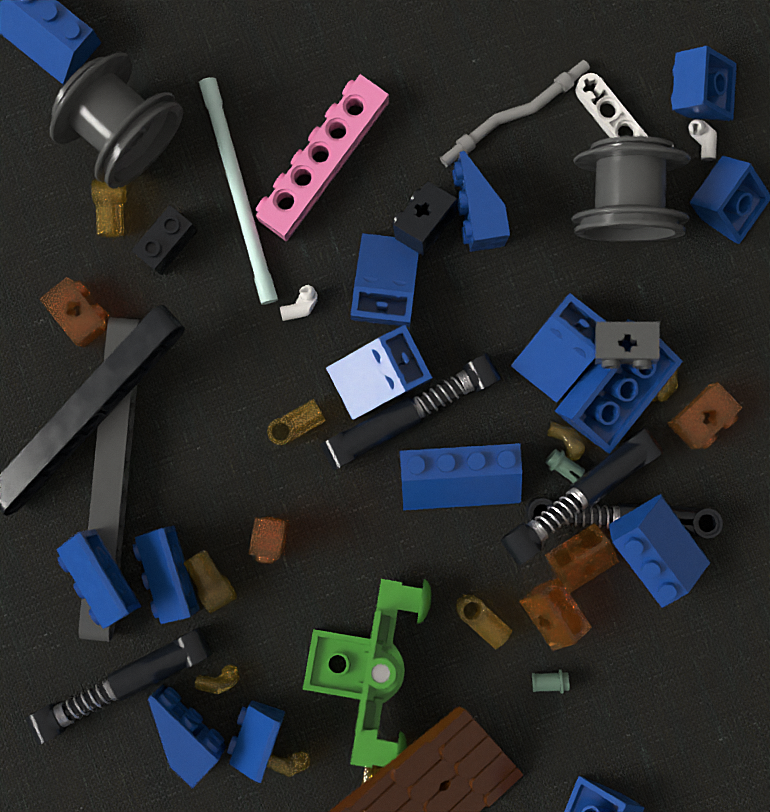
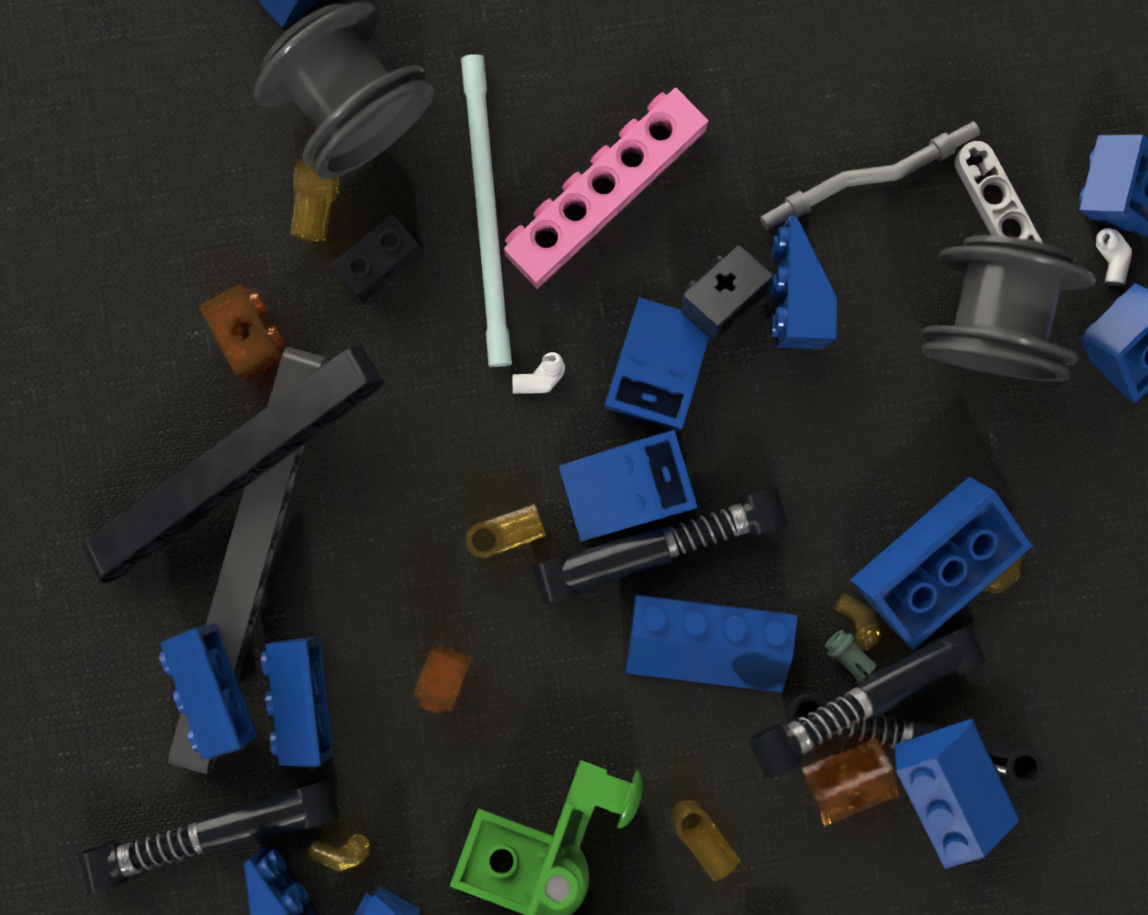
camera: 10 degrees right, 0 degrees up
(214, 589) = (357, 730): clear yellow piece -> none
(555, 614) = (802, 850): clear orange brick -> none
(560, 348) = (877, 498): blue slope -> none
(641, 335) = (987, 504): dark grey brick -> none
(711, 400) = (1026, 626): clear orange brick -> none

